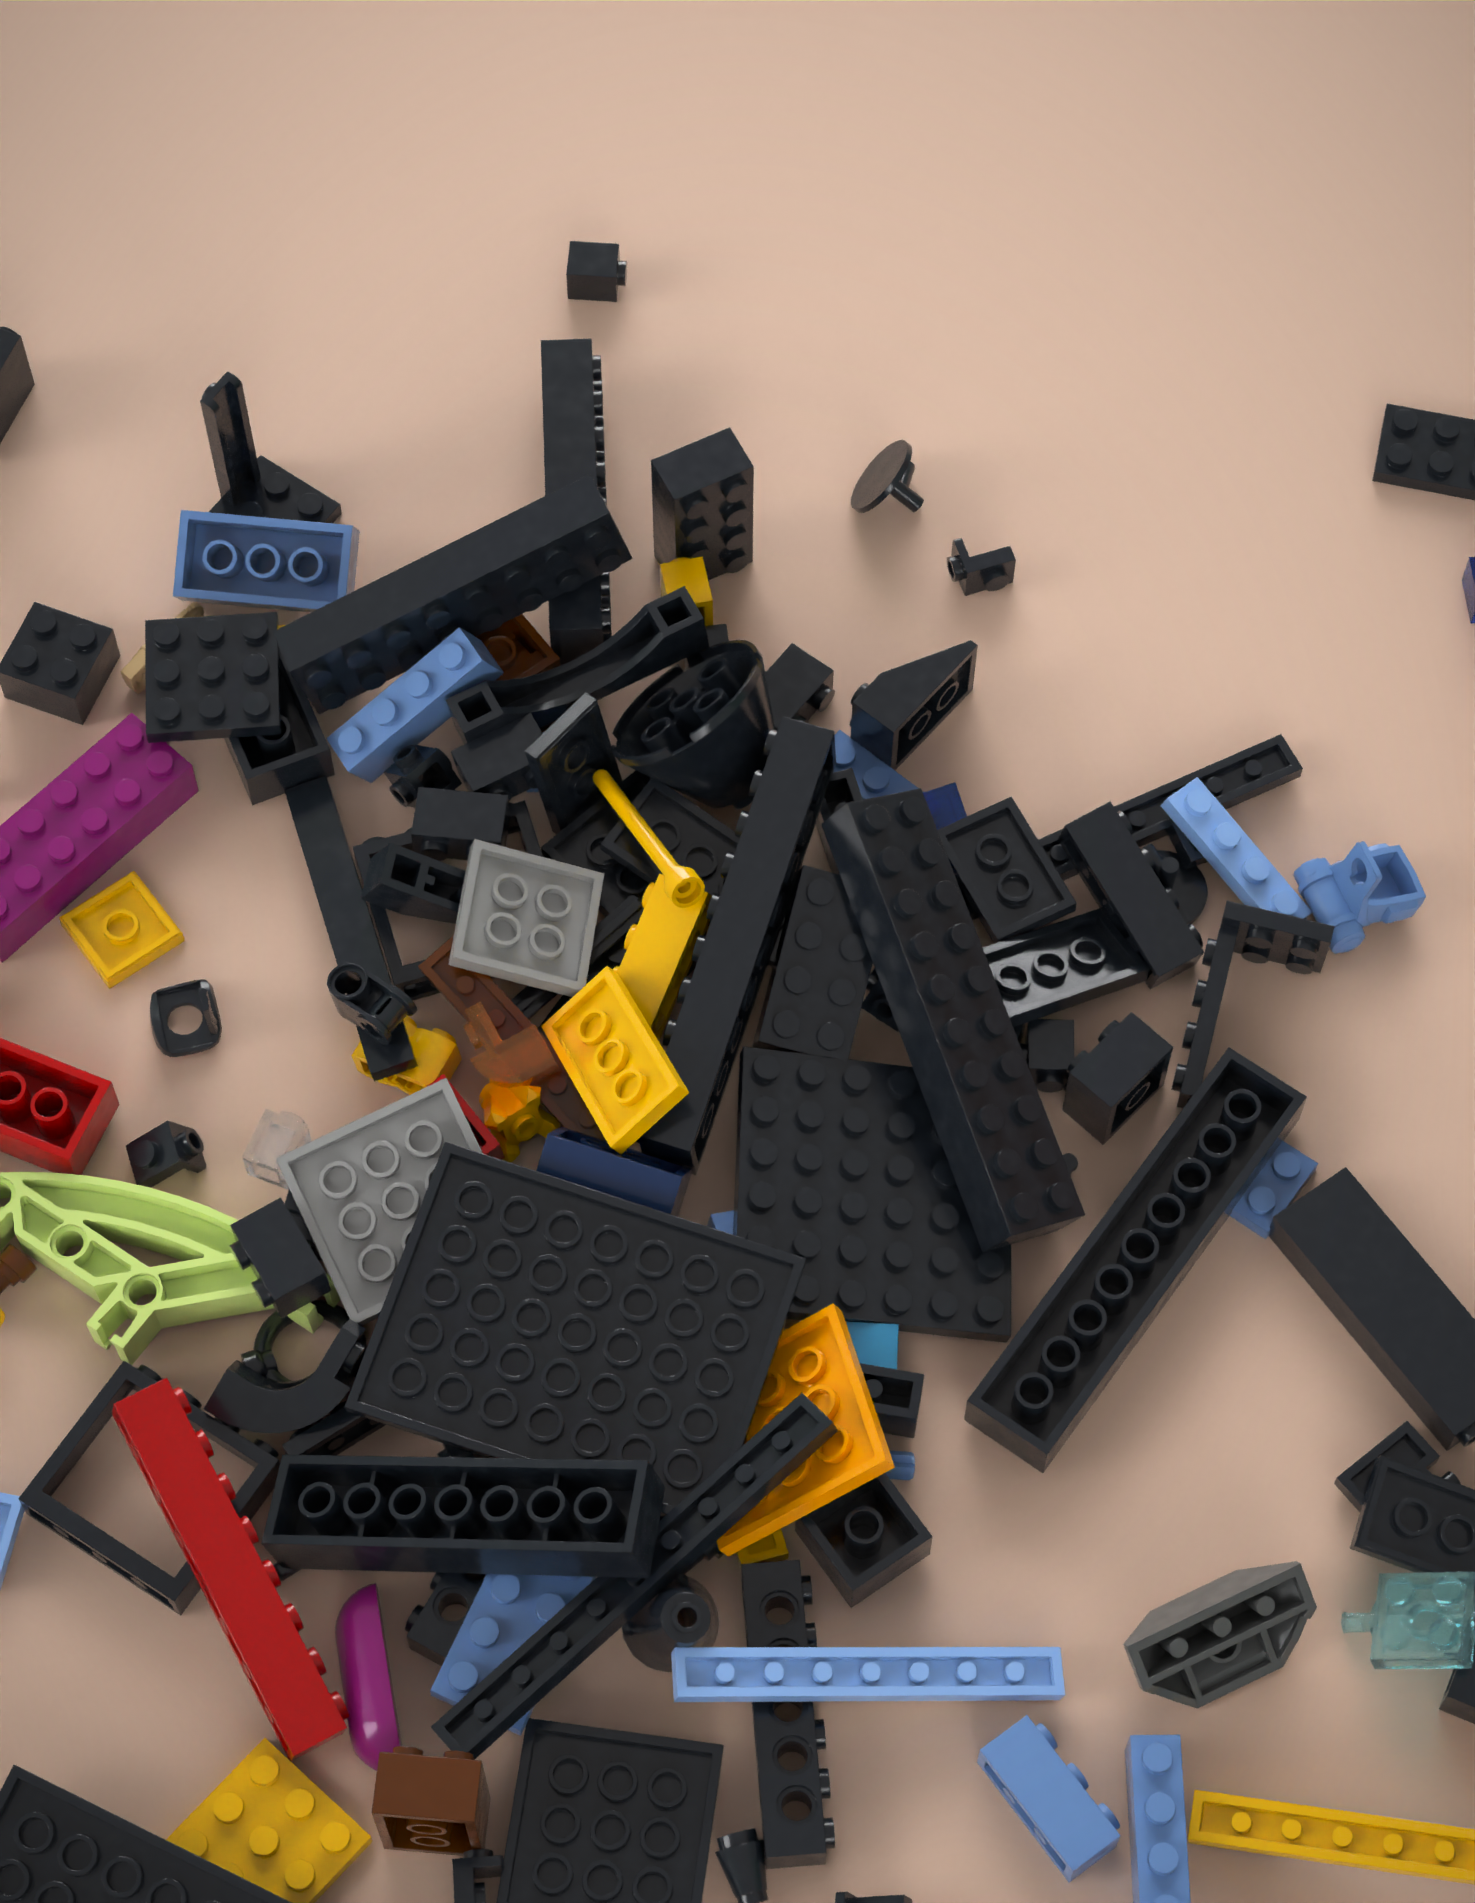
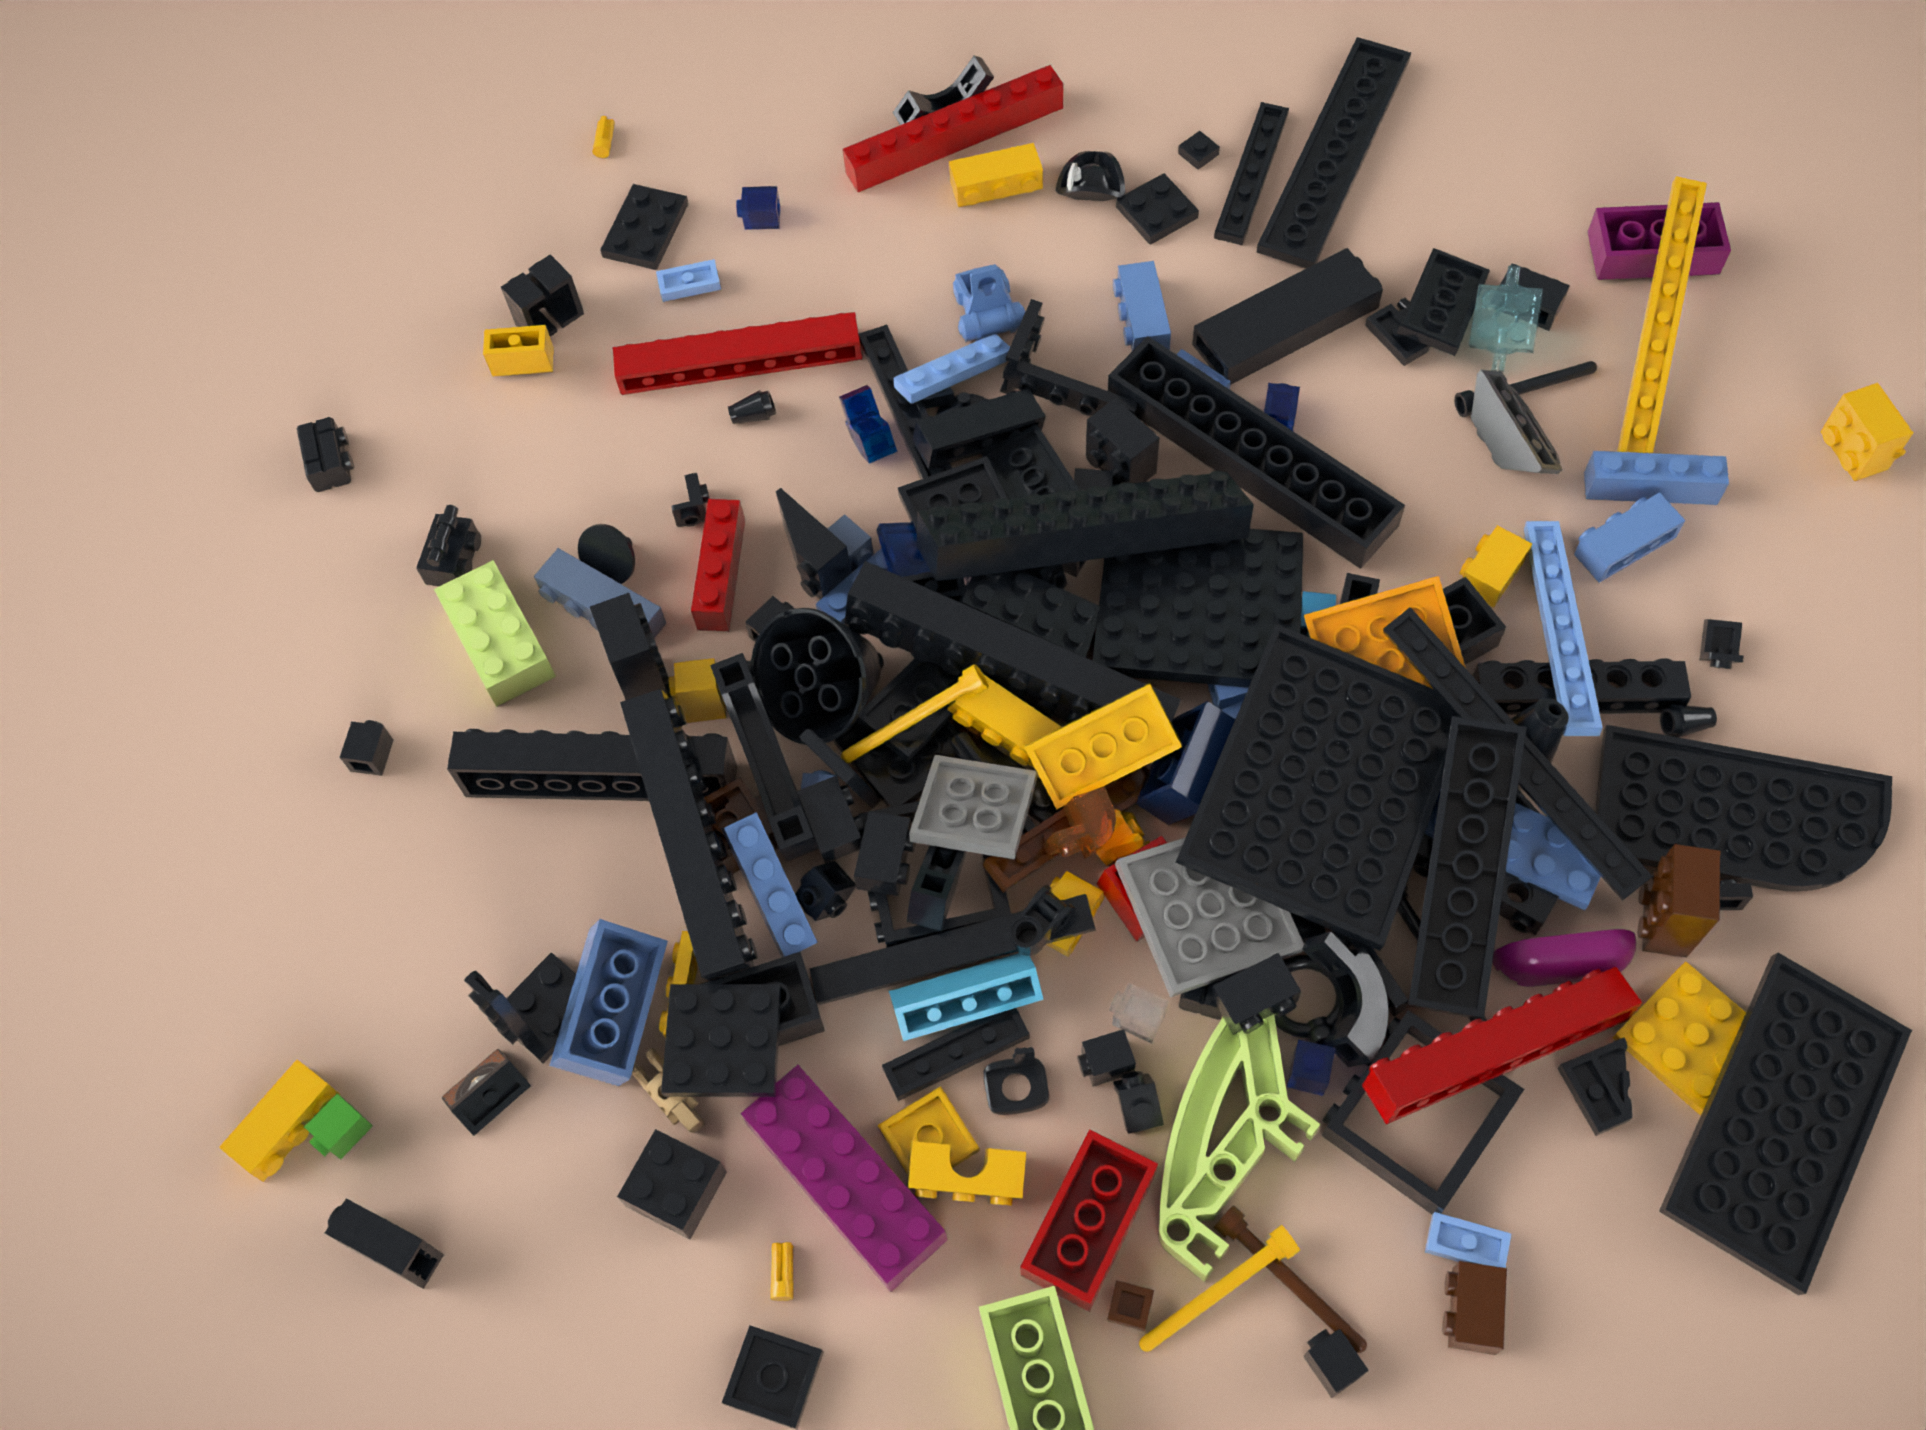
camera: 80 degrees left, 0 degrees up
(66, 926) = (999, 1178): none -> yellow arch
(122, 328) = (337, 1127): none -> bright green brick
(132, 275) = (278, 1121): none -> yellow brick
(167, 465) = (485, 1092): none -> black panel
(192, 1714) = (1601, 1086): none -> black wing
(206, 1348) = (1311, 1067): none -> clear blue brick
(218, 1114) = (1106, 1057): none -> black brick
(225, 947) = (954, 1052): none -> black plate
(287, 943) = (965, 995): none -> medium azure brick
(762, 372) = (495, 633): none -> yellowish green brick
(820, 483) = (581, 586): none -> sand blue brick
(877, 307) = (448, 548): none -> black brick
(884, 607) = (718, 565): none -> red brick
(932, 755) = (857, 541): none -> sand blue brick
(978, 1598) = (1496, 563): none -> yellow brick
(1009, 149) = (324, 454): none -> black brick
(1123, 762) = (866, 425): none -> clear blue brick
(1142, 622) = (753, 408): none -> black cone
(1192, 330) = (518, 350): none -> yellow brick
(1224, 1300) = (1282, 403): none -> clear blue brick
(1231, 591) = (736, 353): none -> red brick
(1267, 325) = (547, 288): none -> black piece
(1331, 1689) = (1464, 399): none -> black piece
(1349, 517) = (688, 280): none -> light blue plate
(1381, 1104) = (1141, 304): none -> medium blue brick

